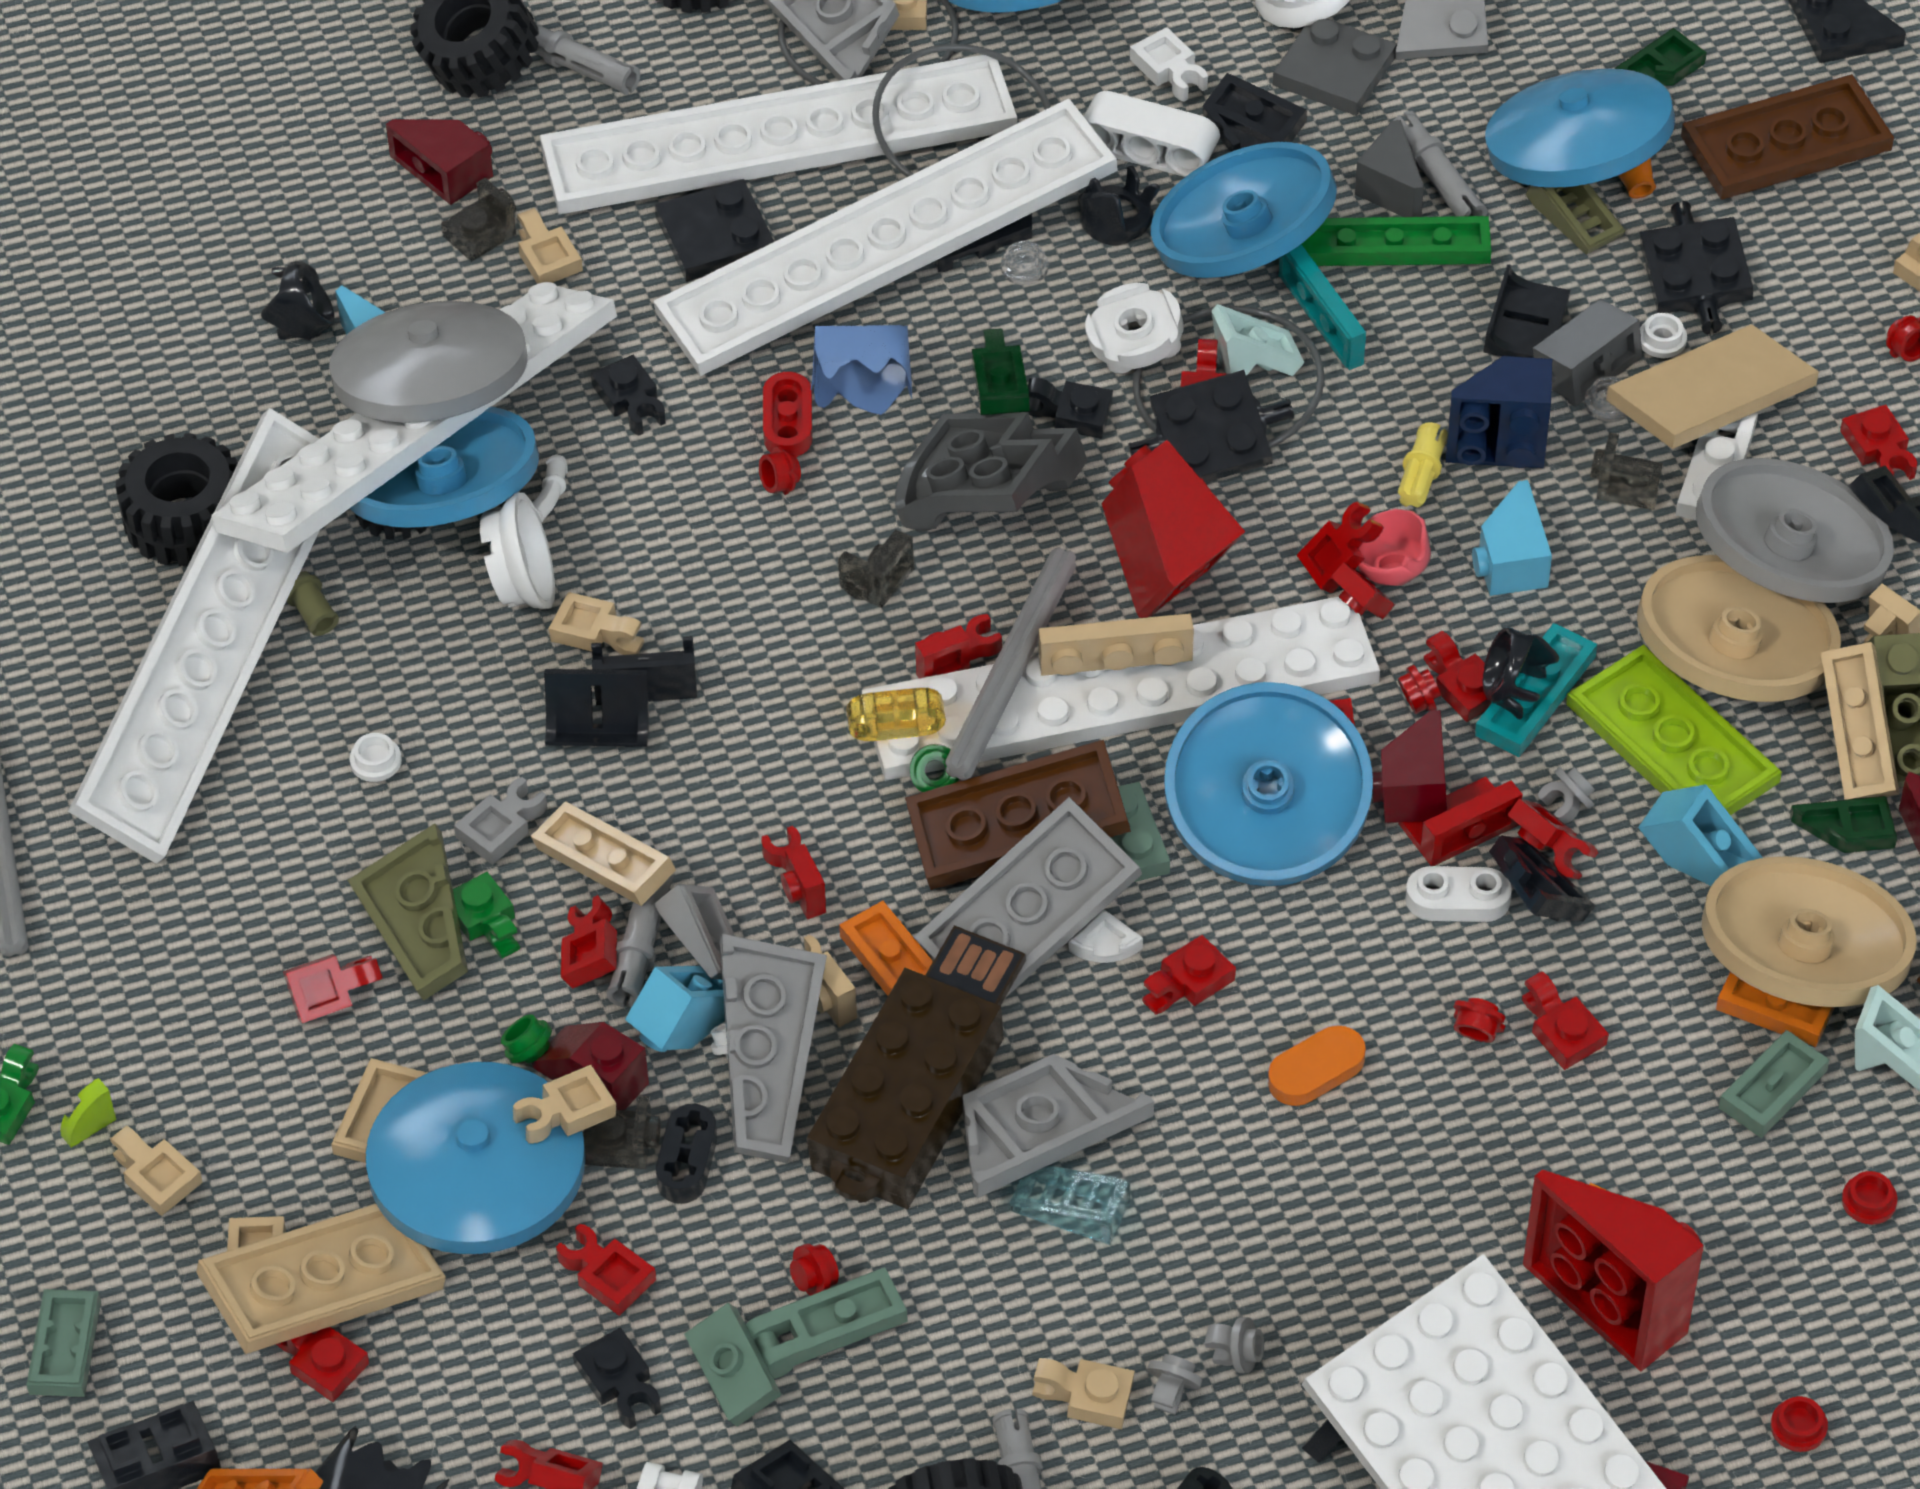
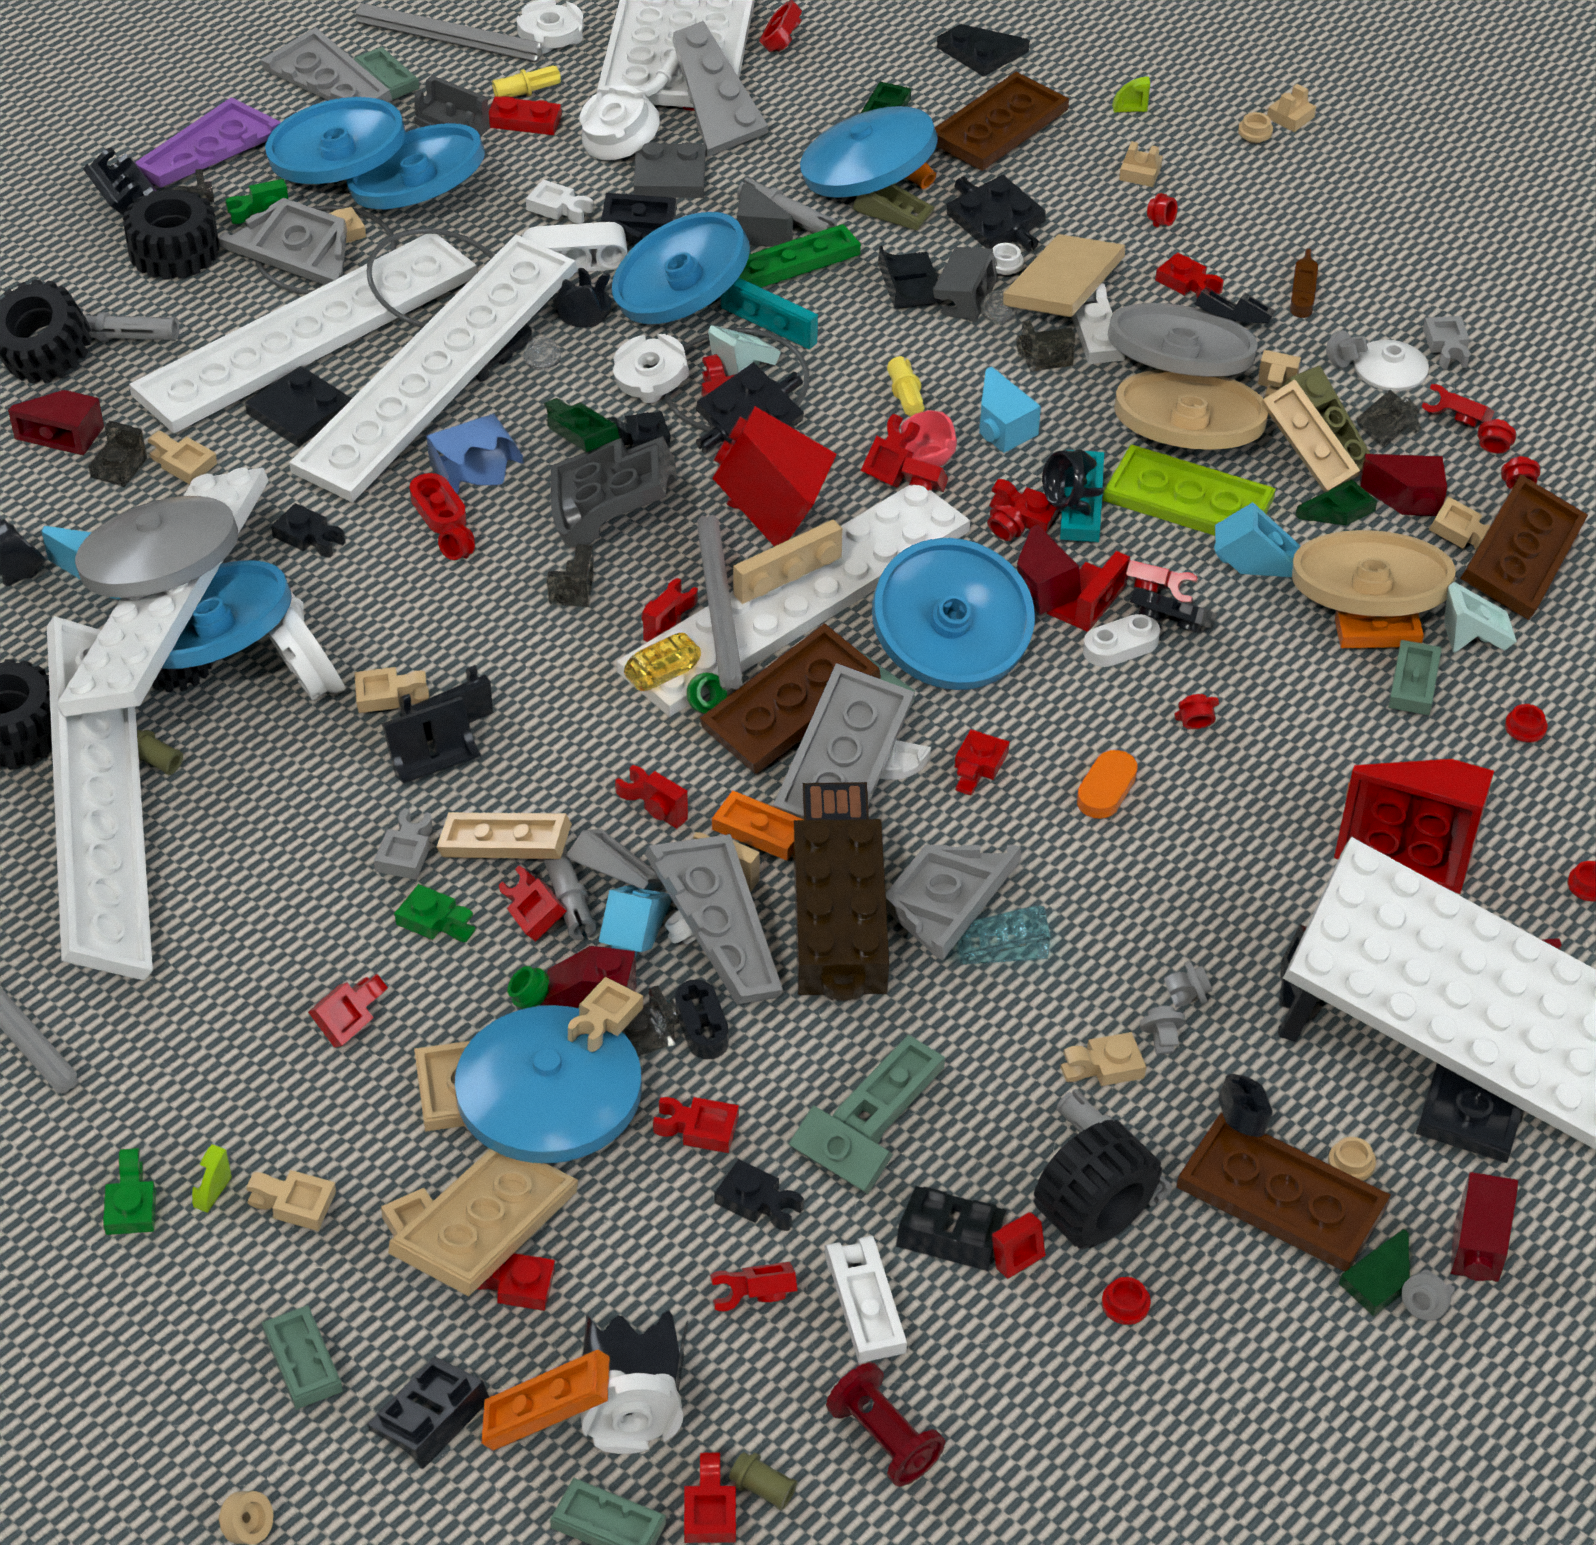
camera: 30 degrees left, 5 degrees down
(375, 757) = (276, 839): white plate -> none
(416, 910) = (382, 932): olive wing -> none
(813, 1268) = (854, 1058): red plate -> none
(1502, 414) = (949, 332): dark blue slope -> none
(1562, 1028) = (1252, 697): red plate -> none
(1573, 788) = (1151, 544): light grey plate -> none

